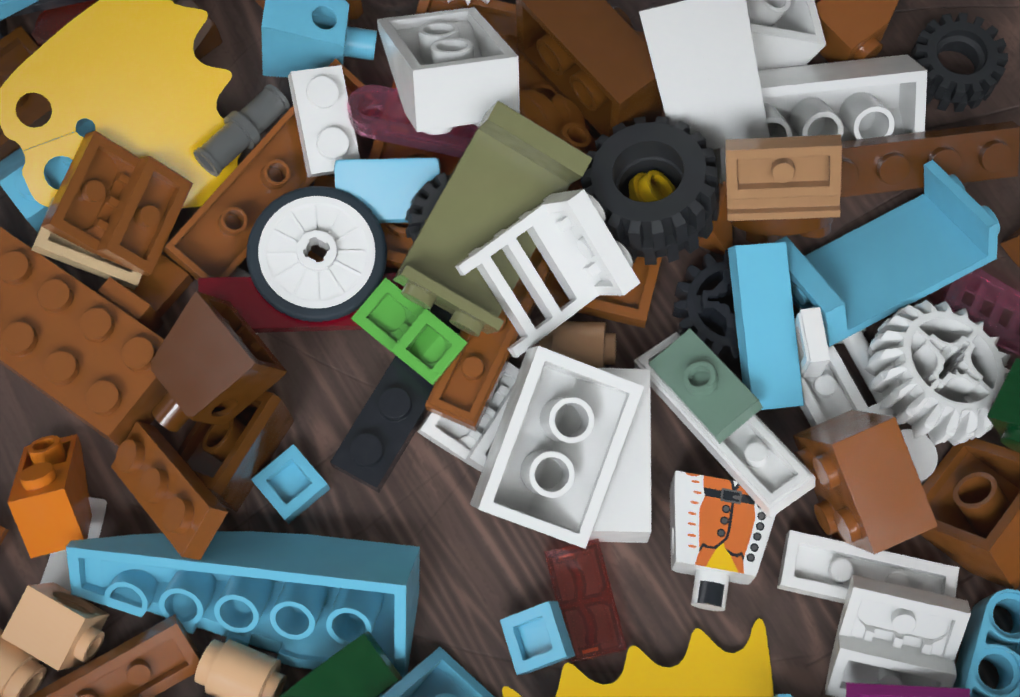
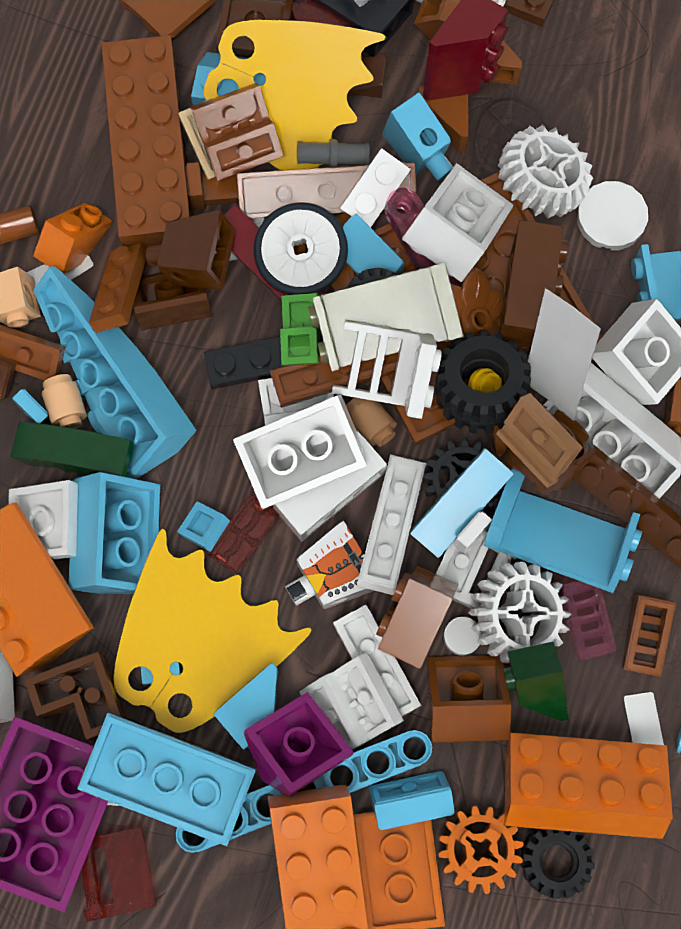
camera: 45 degrees right, 5 degrees up
(290, 483) = (177, 343): medium azure tile -> none
(705, 386) = (400, 498): sand green plate -> none

